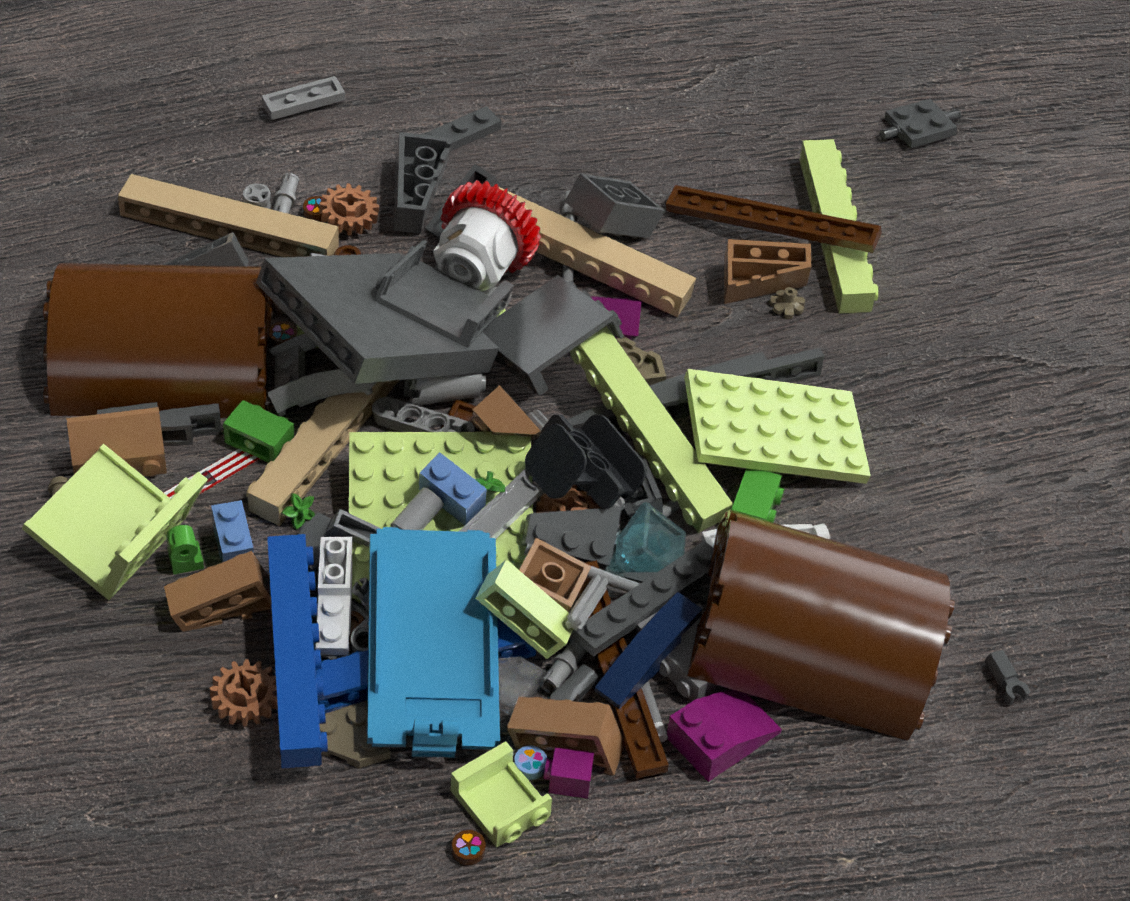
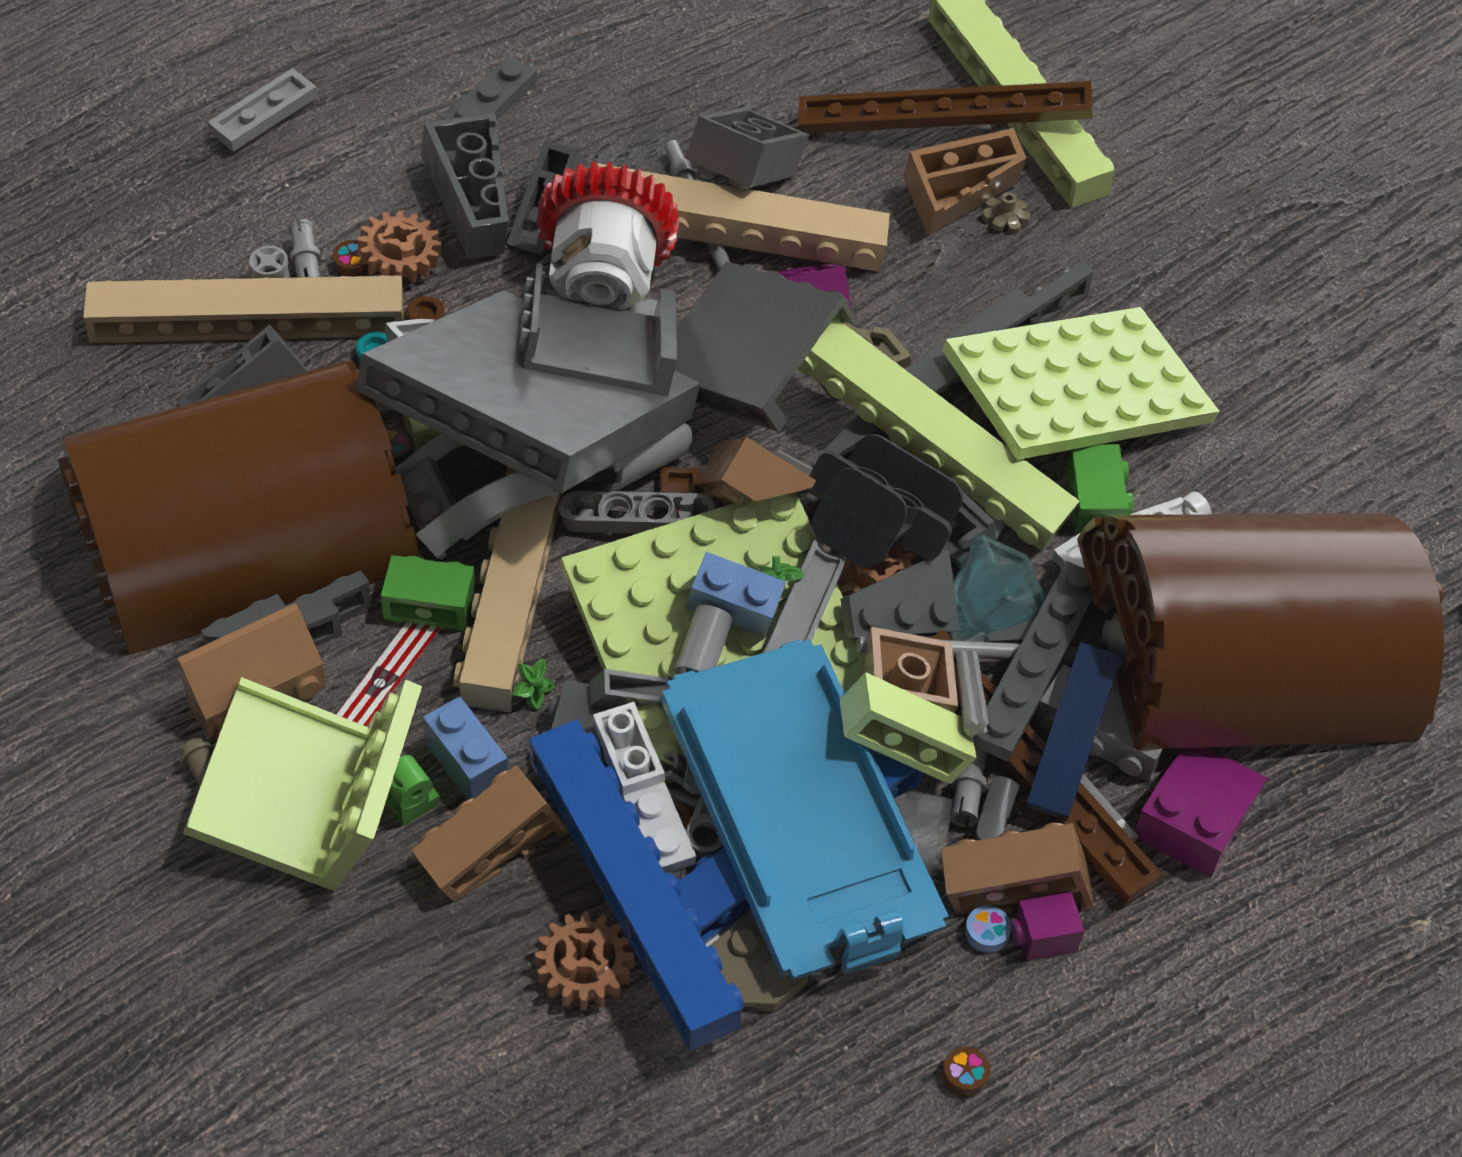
camera: 20 degrees left, 5 degrees up
(499, 796) = (975, 990): yellowish green panel -> none

